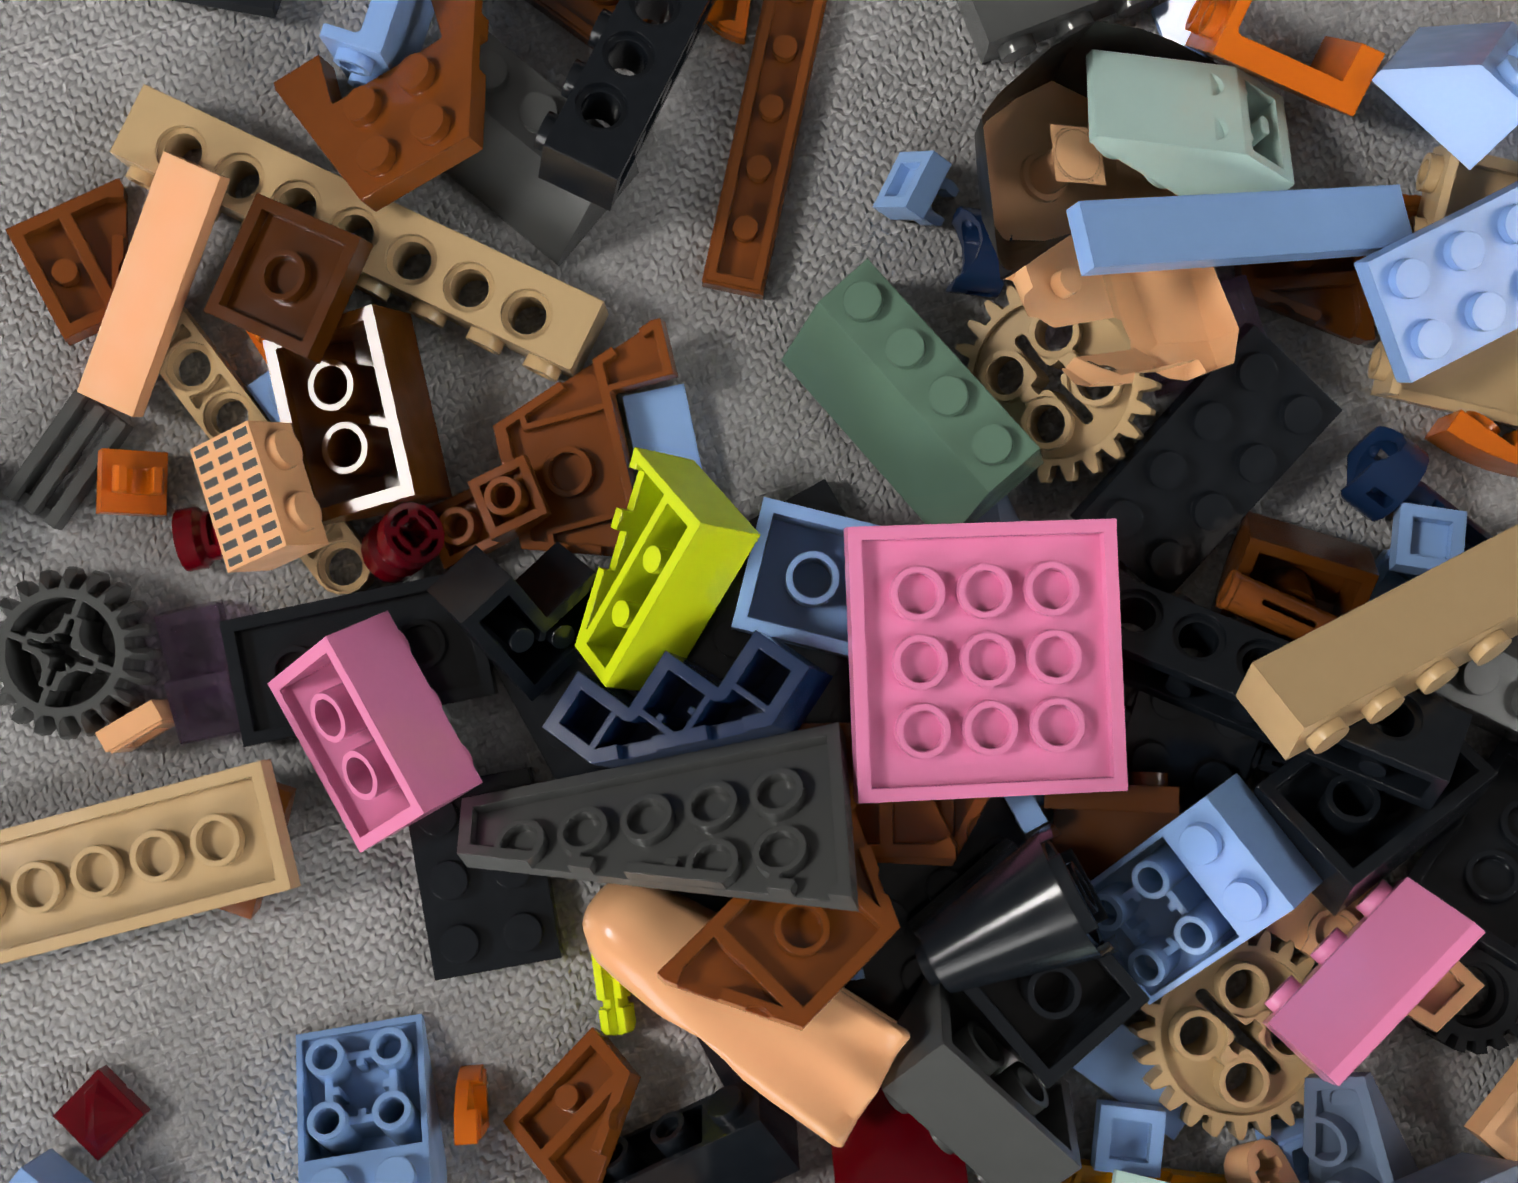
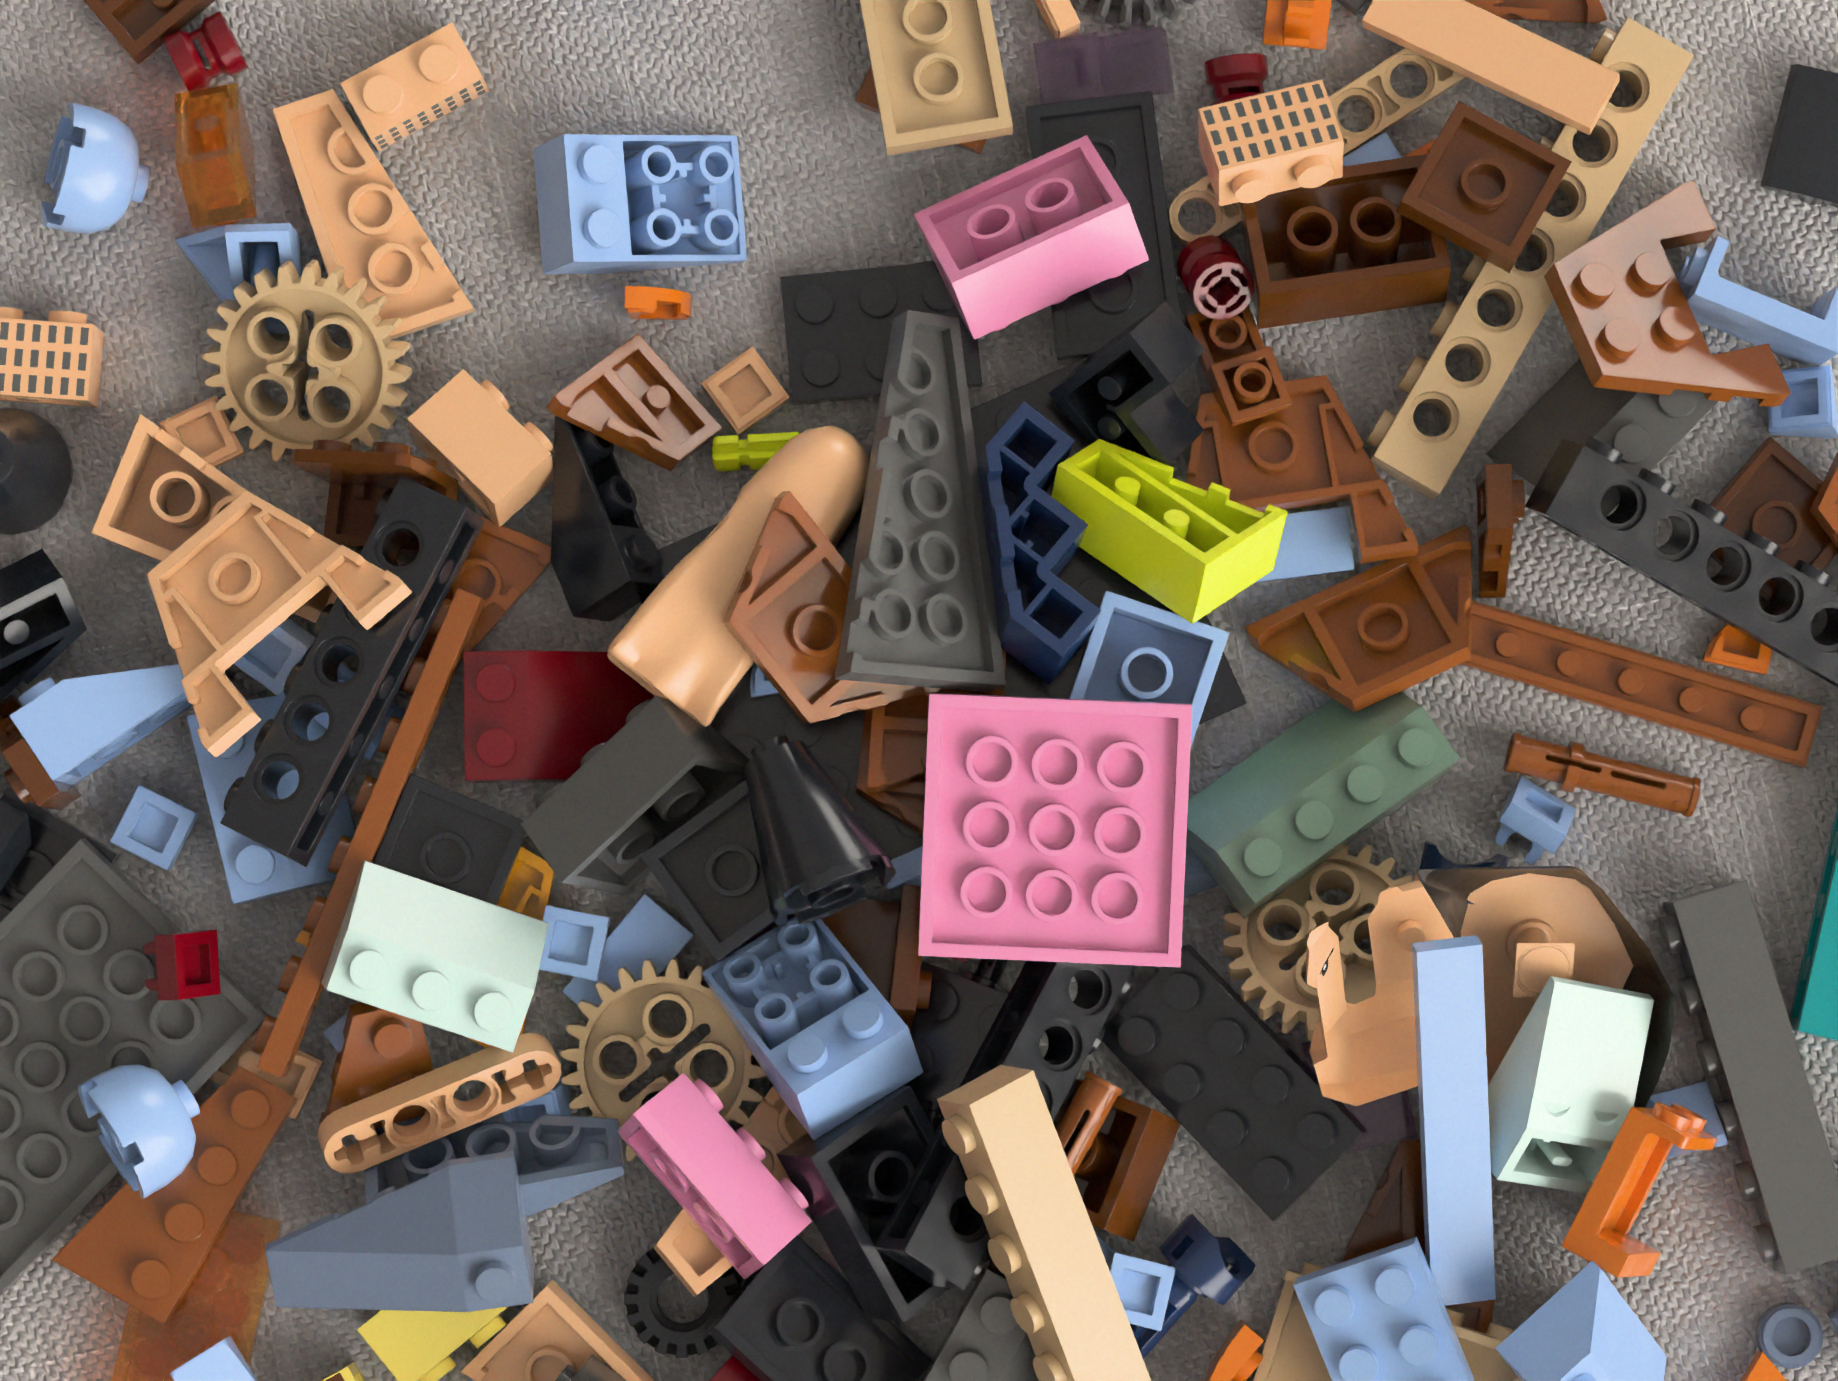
camera: 90 degrees right, 0 degrees up
(553, 1004) = (745, 391): none -> light nougat tile
(616, 243) = (1498, 509): none -> reddish brown wing
(739, 353) = (1379, 626): none -> dark orange wing
(856, 196) = (1577, 768): none -> dark orange pin

